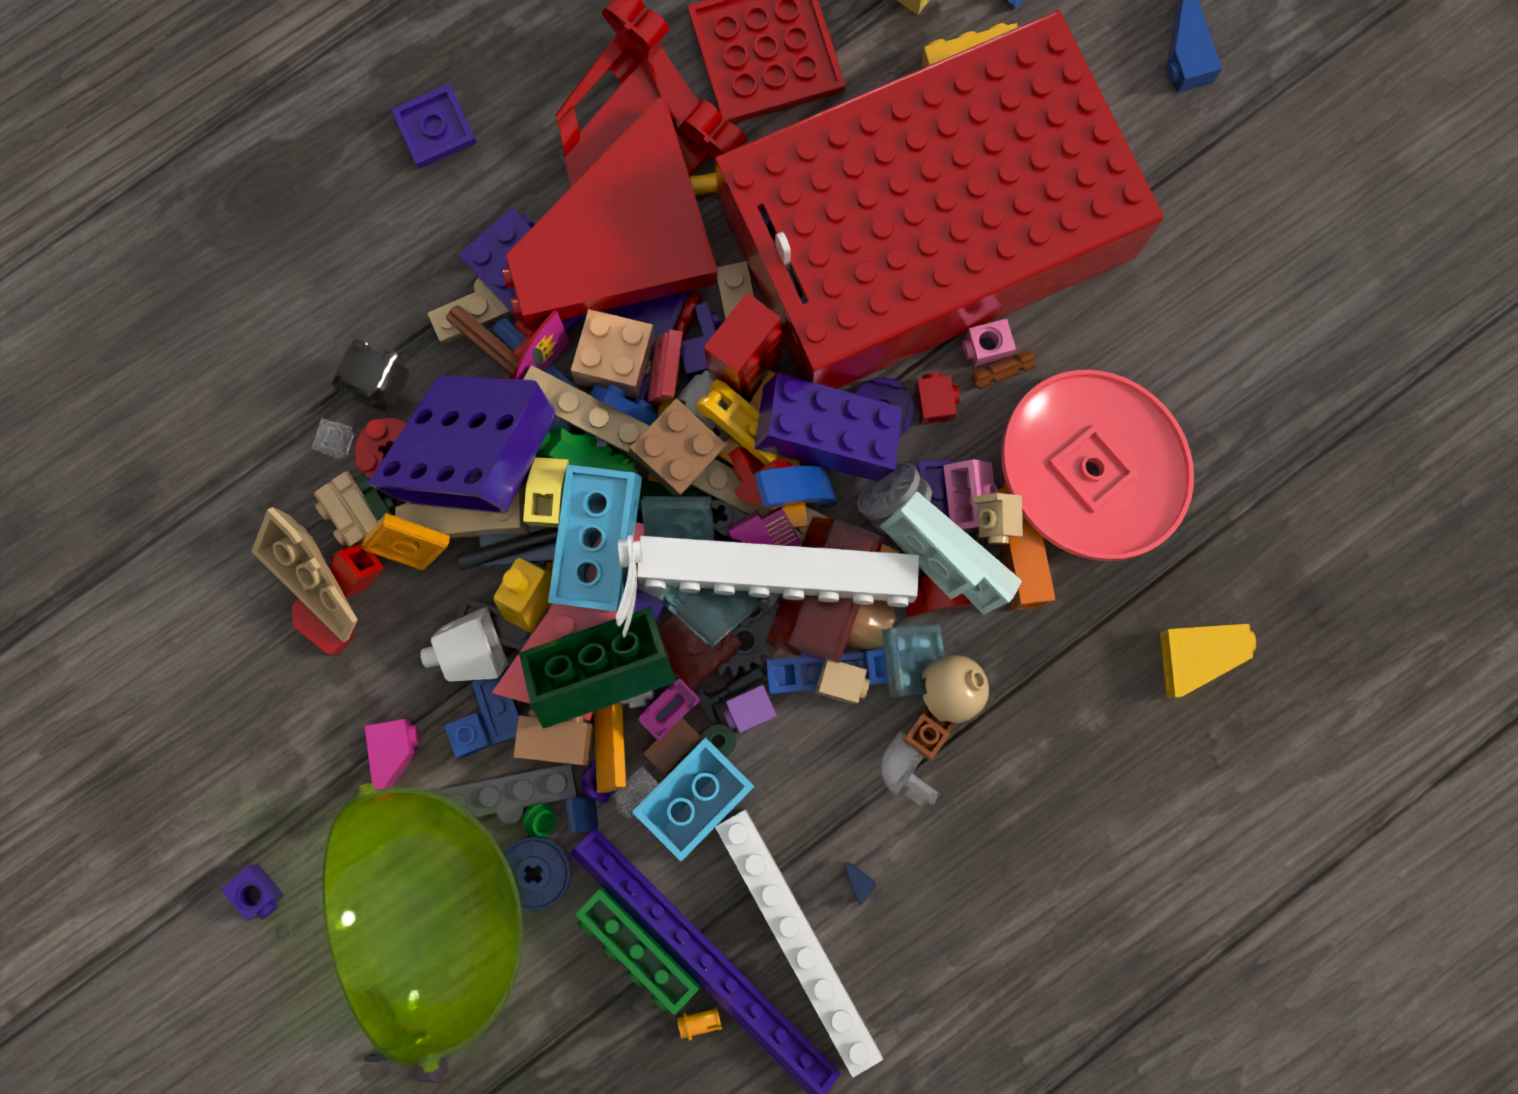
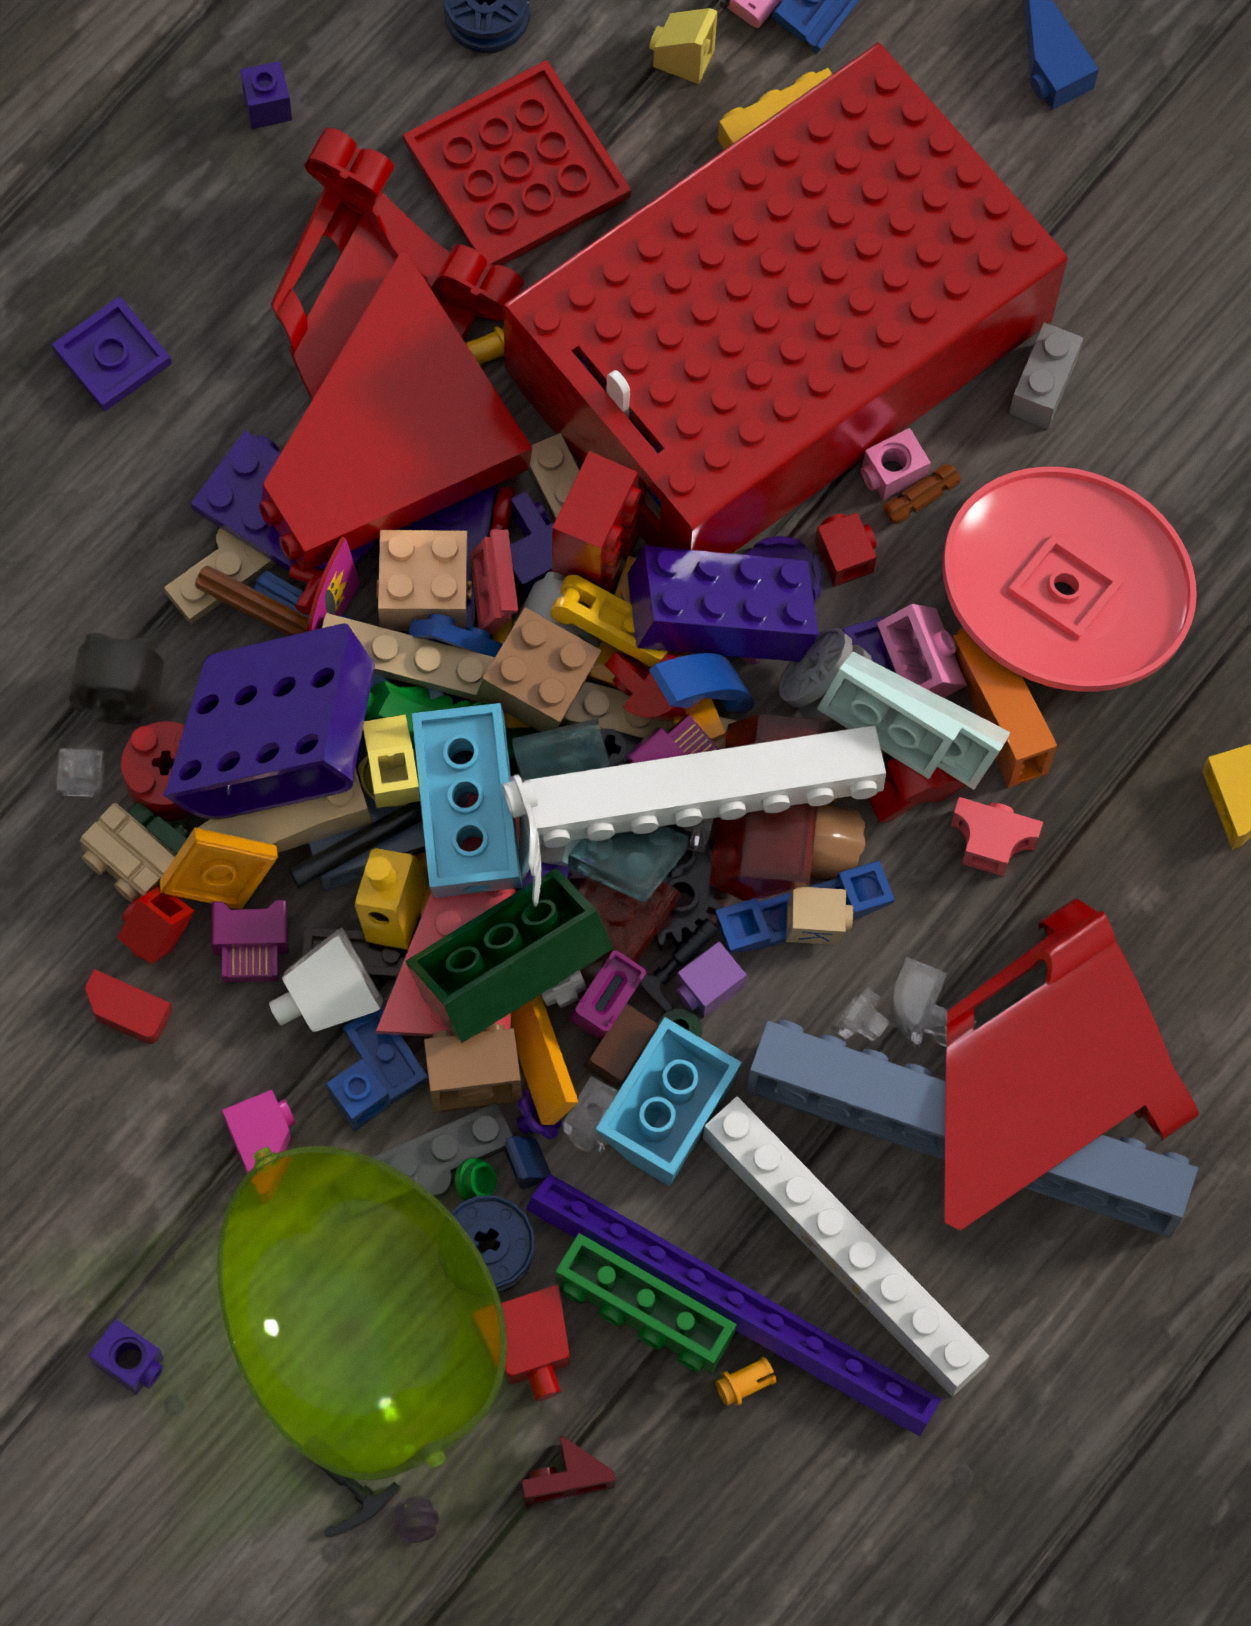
camera: 20 degrees left, 10 degrees down
(298, 563) = (87, 931): tan wedge -> none
(421, 598) = (250, 941): none -> magenta piece
(549, 954) = (536, 1341): none -> red torso
(559, 1066) = (581, 1476): none -> dark red slope
(854, 764) = (862, 1017): none -> clear tile
(861, 883) = (902, 1156): dark blue slope -> none
(907, 655) = (903, 869): clear light blue plate -> none
(922, 882) = (909, 1110): none -> sand blue brick
(928, 734) = (947, 944): dark orange slope -> none
(955, 688) = (963, 889): tan cylinder -> none
(987, 851) = (1052, 1066): none -> red panel
(991, 646) = (993, 834): none -> coral brick
(999, 517) = (962, 663): tan brick -> none
(1120, 300) = (1046, 376): none -> light grey brick

